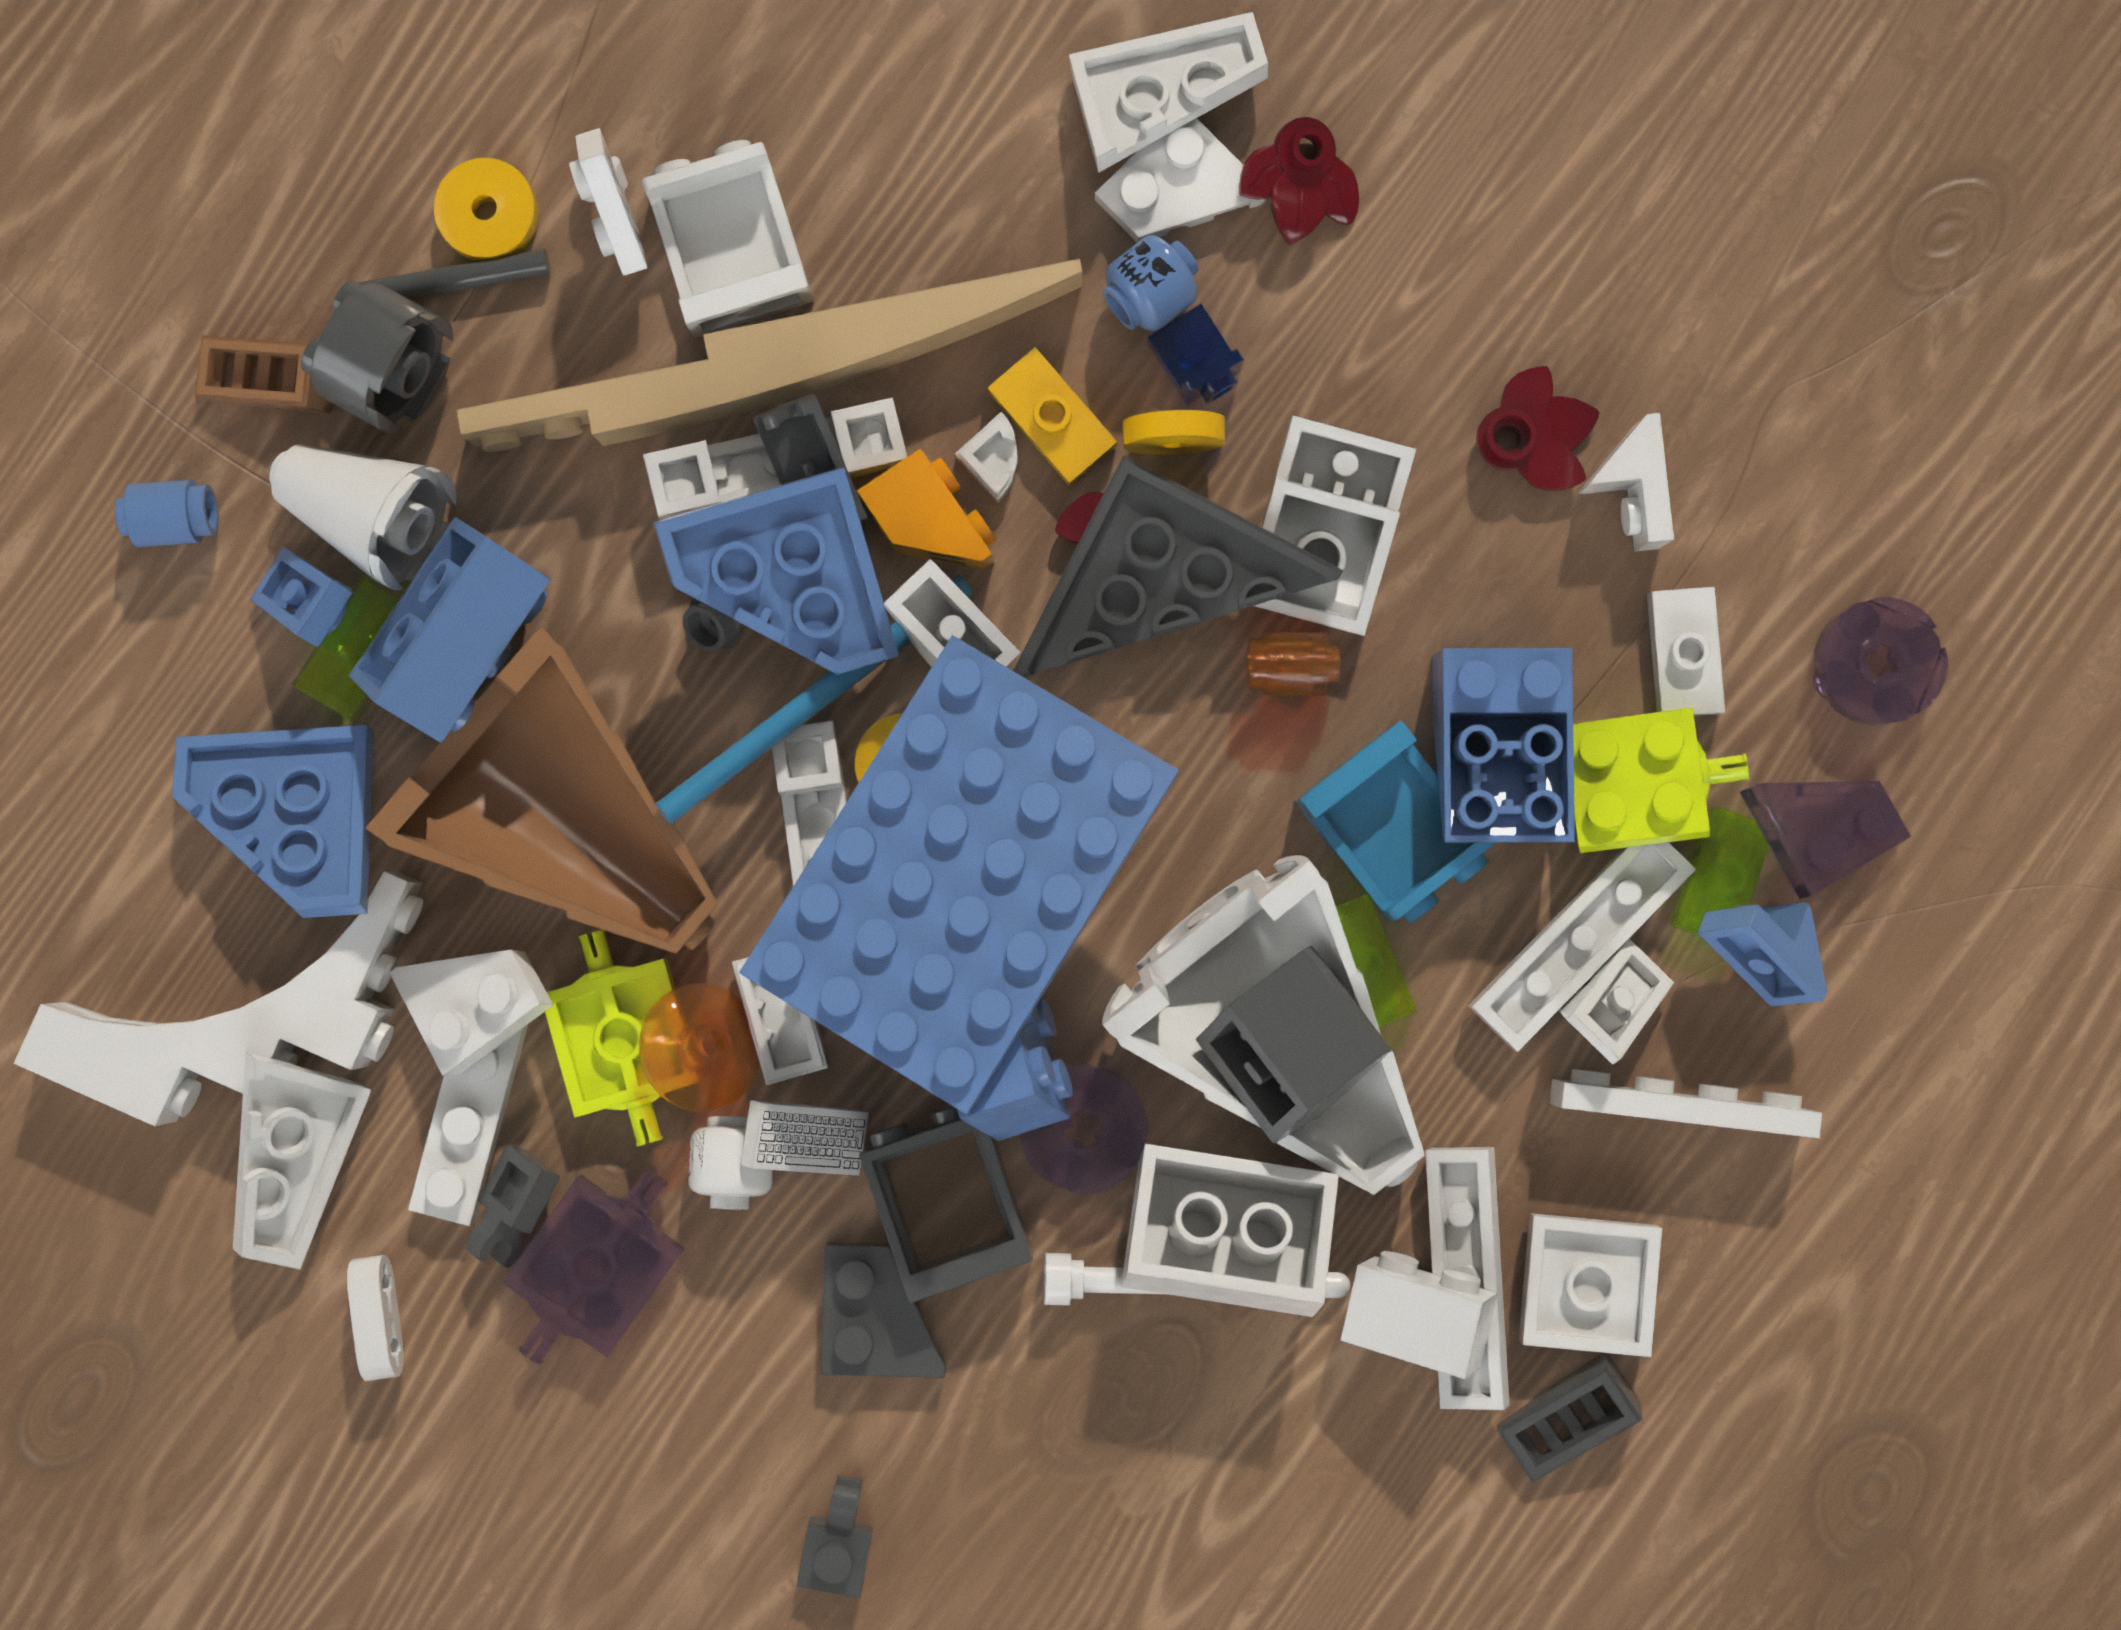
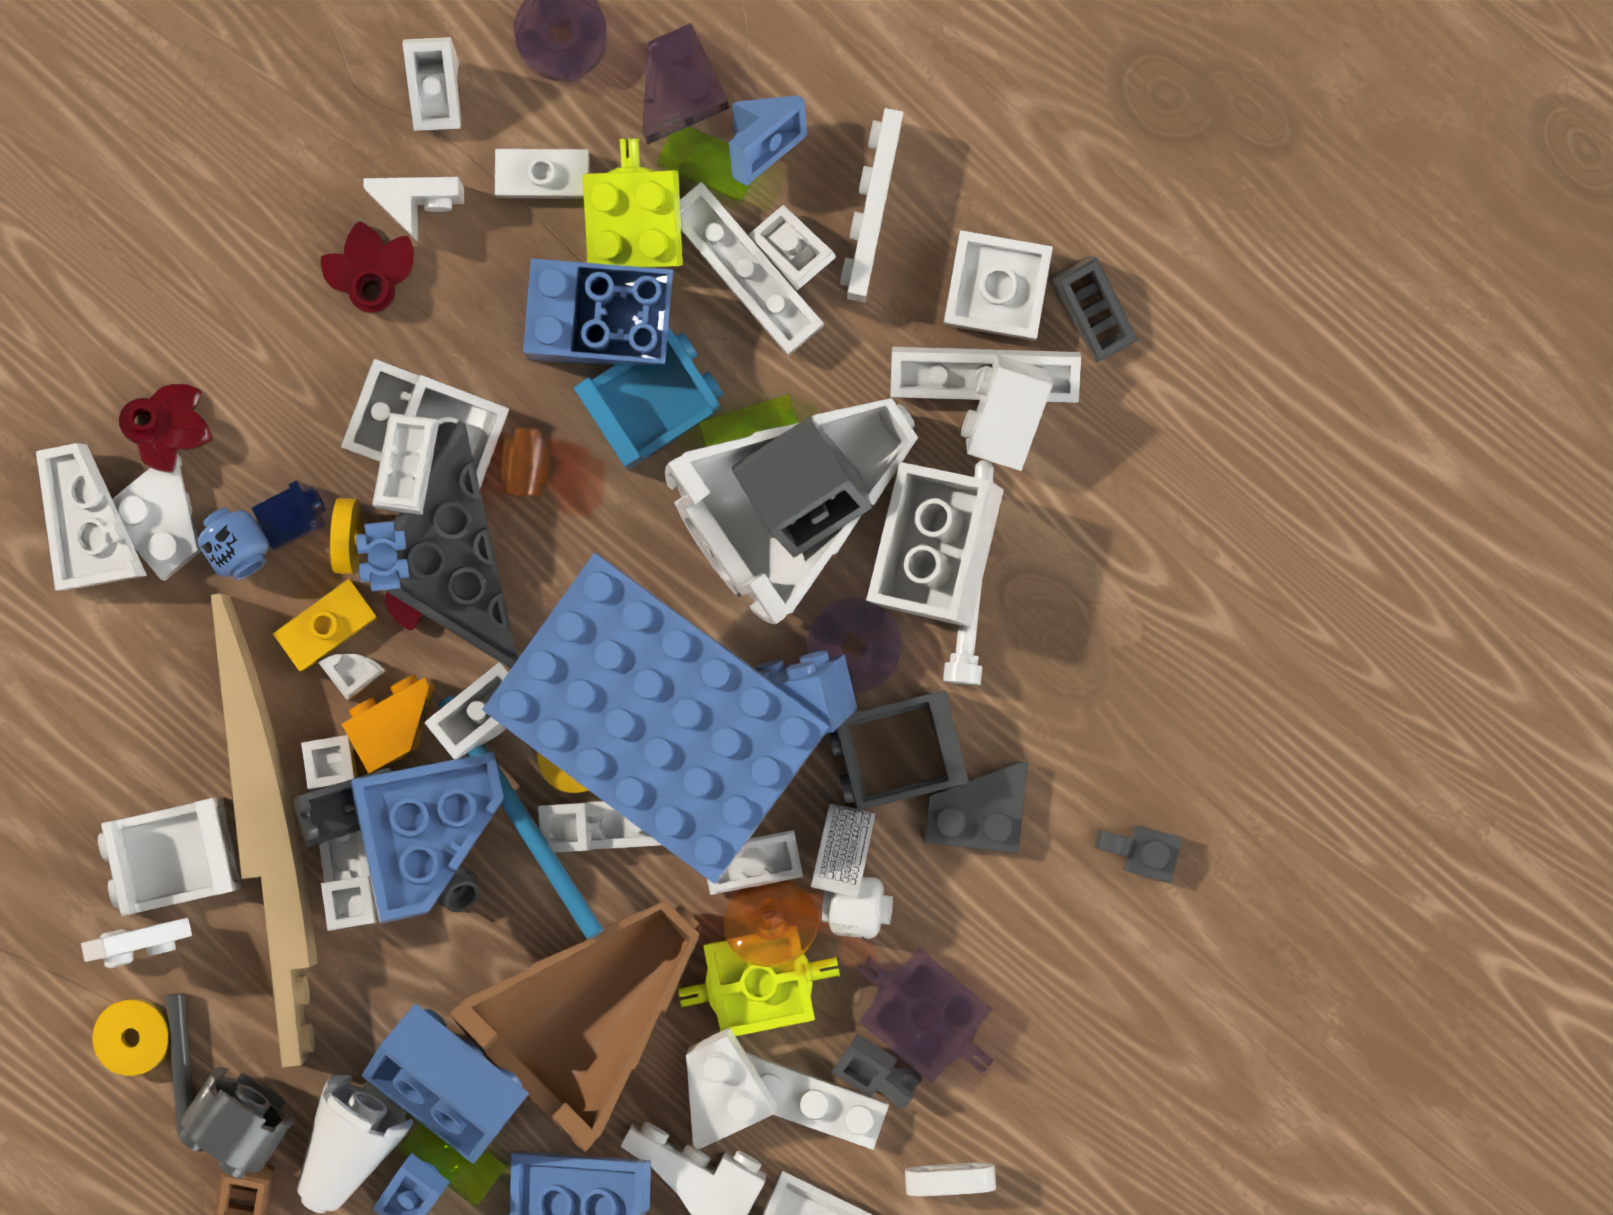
camera: 80 degrees left, 0 degrees up
(1163, 480) = (382, 545): none -> medium blue piece
(1278, 503) = (405, 464): none -> white plate
(1798, 494) = (432, 83): none -> white slope

